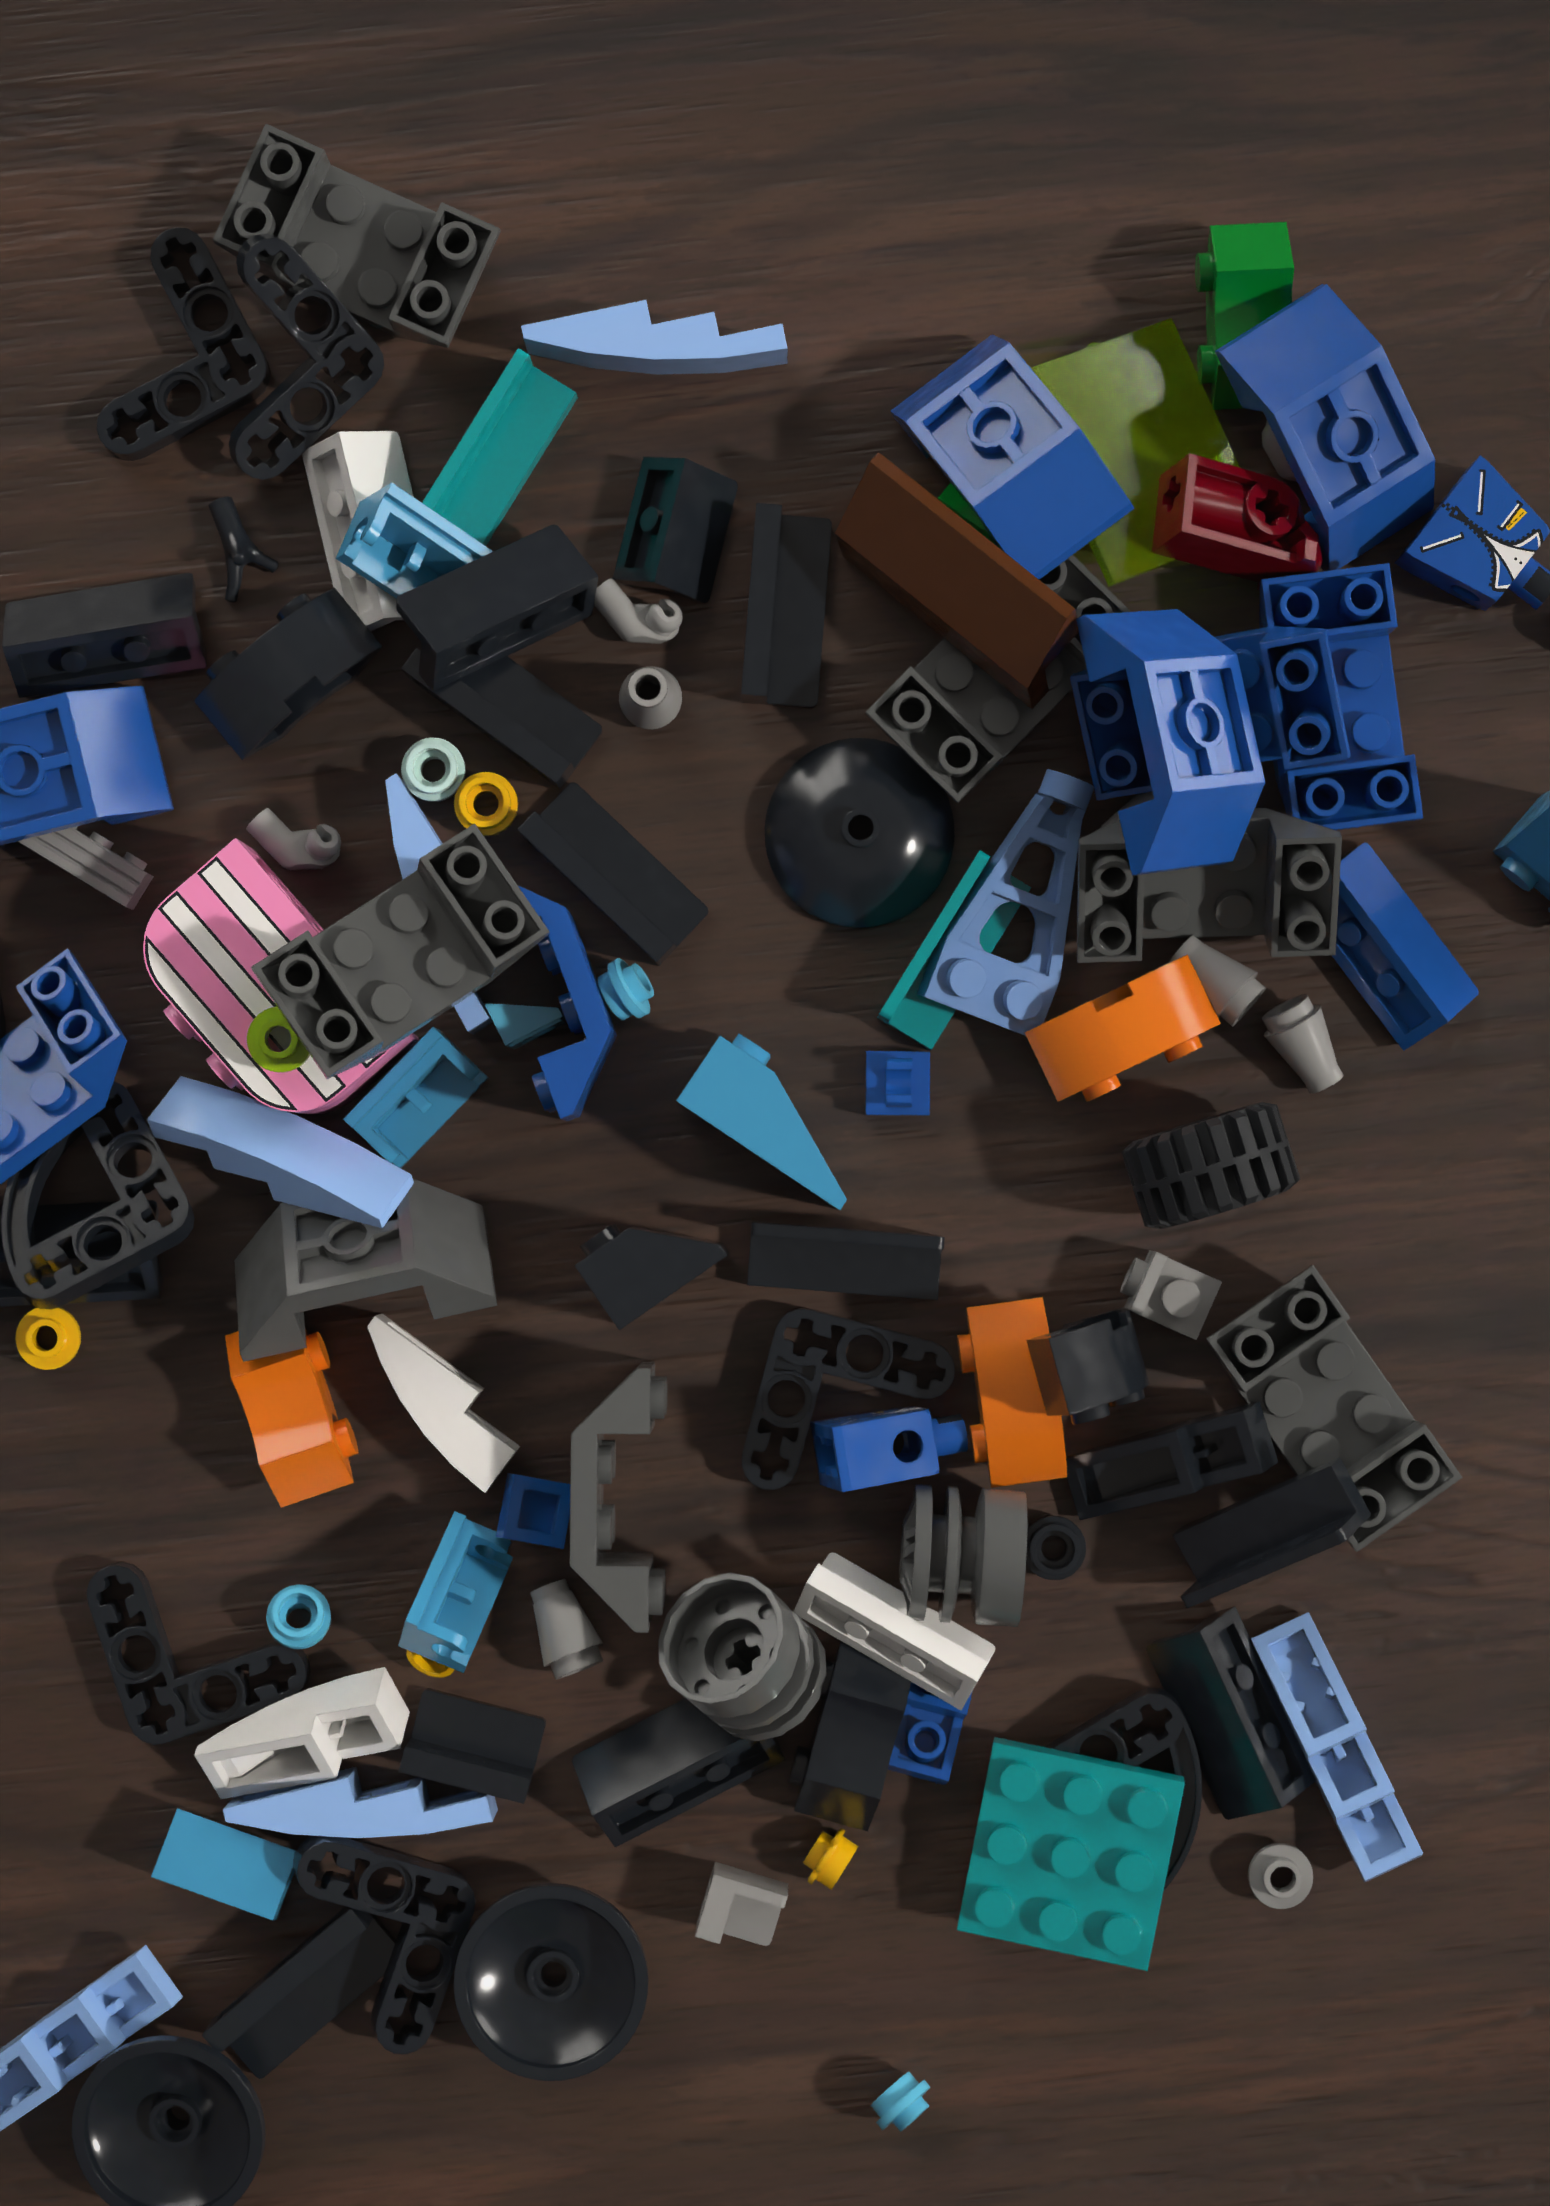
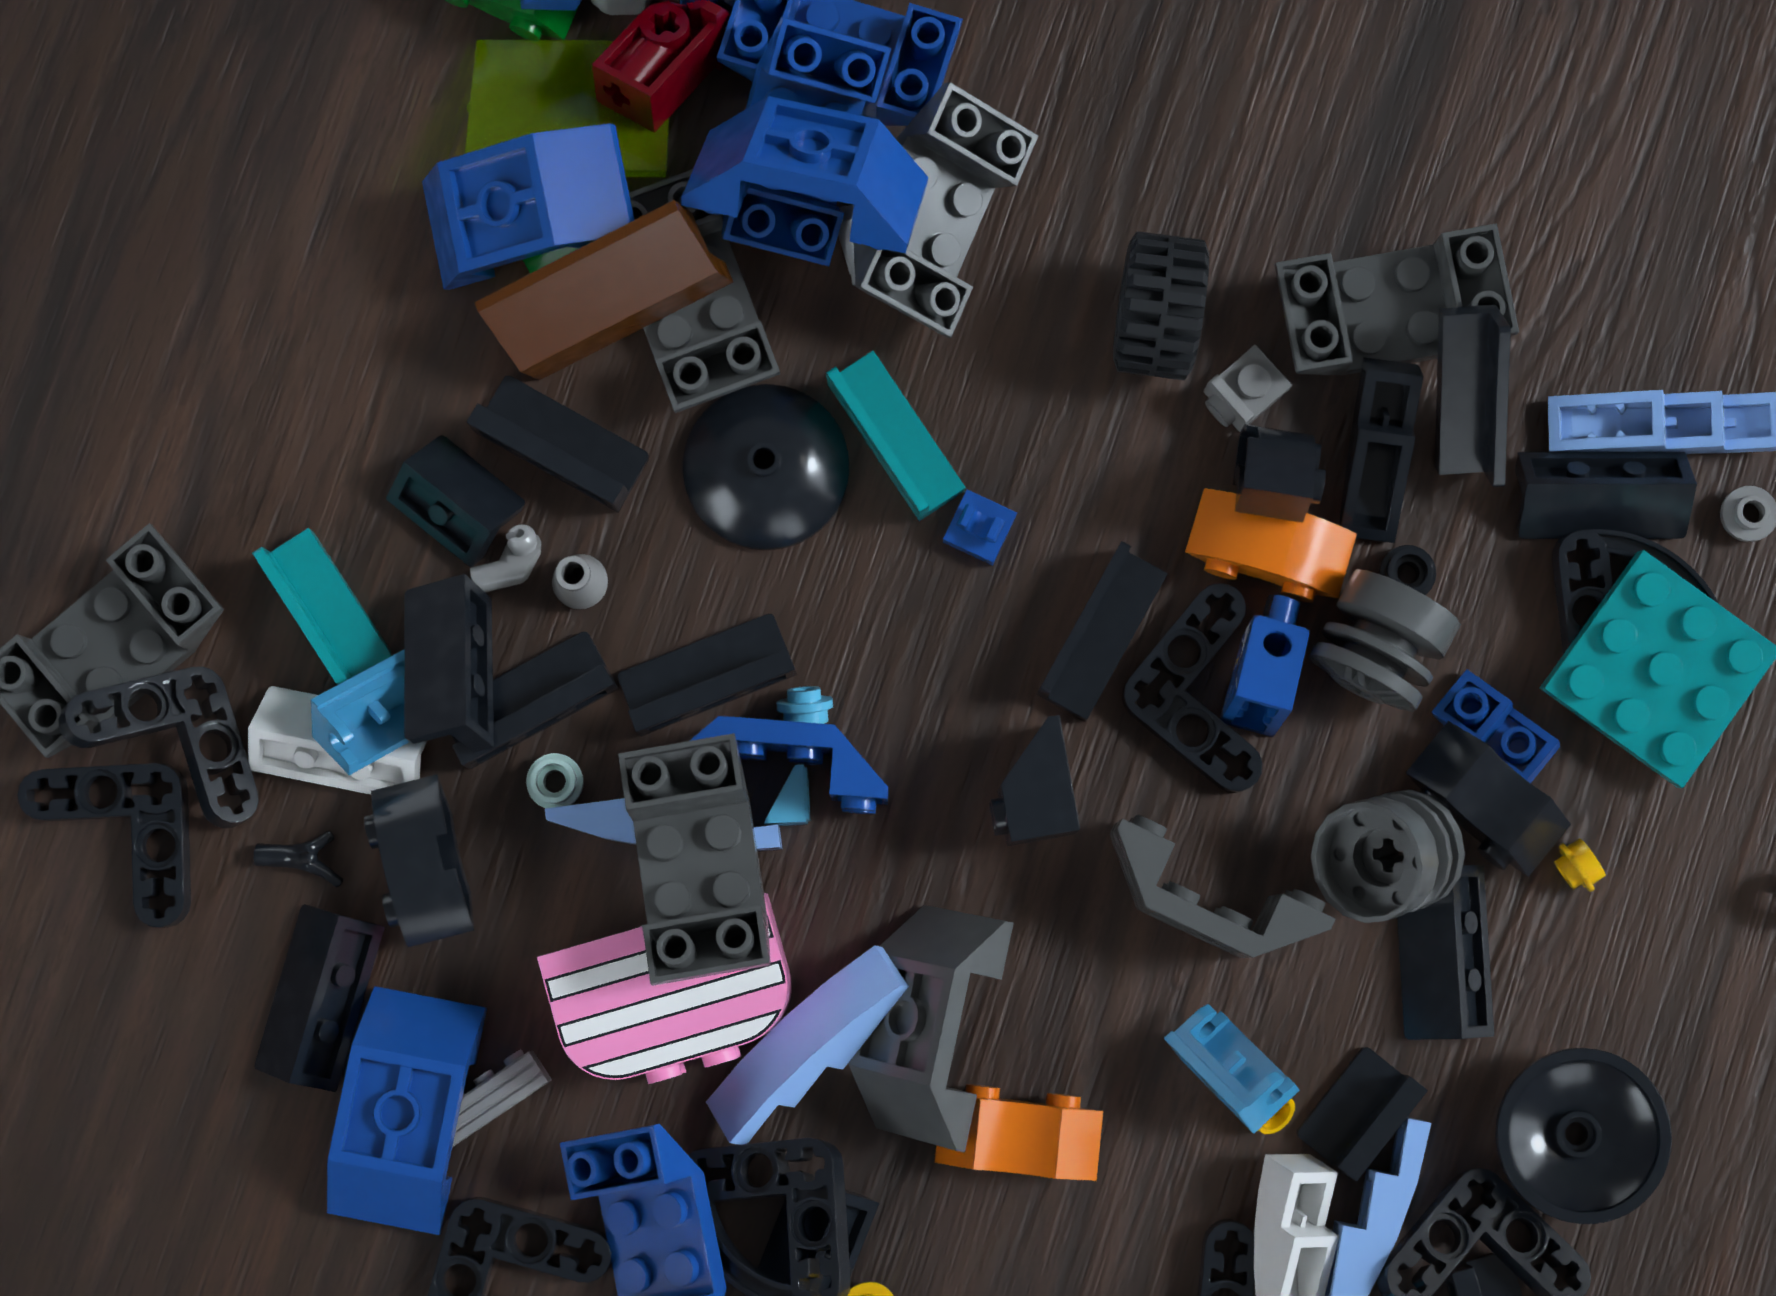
camera: 65 degrees left, 5 degrees down
(259, 1047) = (719, 1014): lime plate -> none
(294, 1598) = (1174, 1206): medium azure plate -> none
(295, 849) = (566, 921): light grey arm -> none
(416, 1098) = (813, 915): dark azure hinge -> none
(440, 1403) = (1071, 1011): white slope -> none
(481, 784) = (586, 743): yellow plate -> none
(534, 1511) = (1193, 972): blue tile -> none
(564, 1630) = (1300, 995): light grey cone -> none
(628, 342) = (289, 465): light blue slope -> none
(740, 1906) = (1586, 956): light grey panel -> none
(751, 1106) = (953, 643): dark azure slope -> none
(876, 1623) = (1406, 739): white panel -> none
(988, 985) = (937, 416): medium blue plate -> none
(1122, 1029) = (1020, 328): orange brick -> none
(1226, 982) = (1014, 239): light grey cone -> none
(1303, 1041) = (1091, 195): light grey cone -> none
(1395, 952) = (1060, 93): blue panel -> none

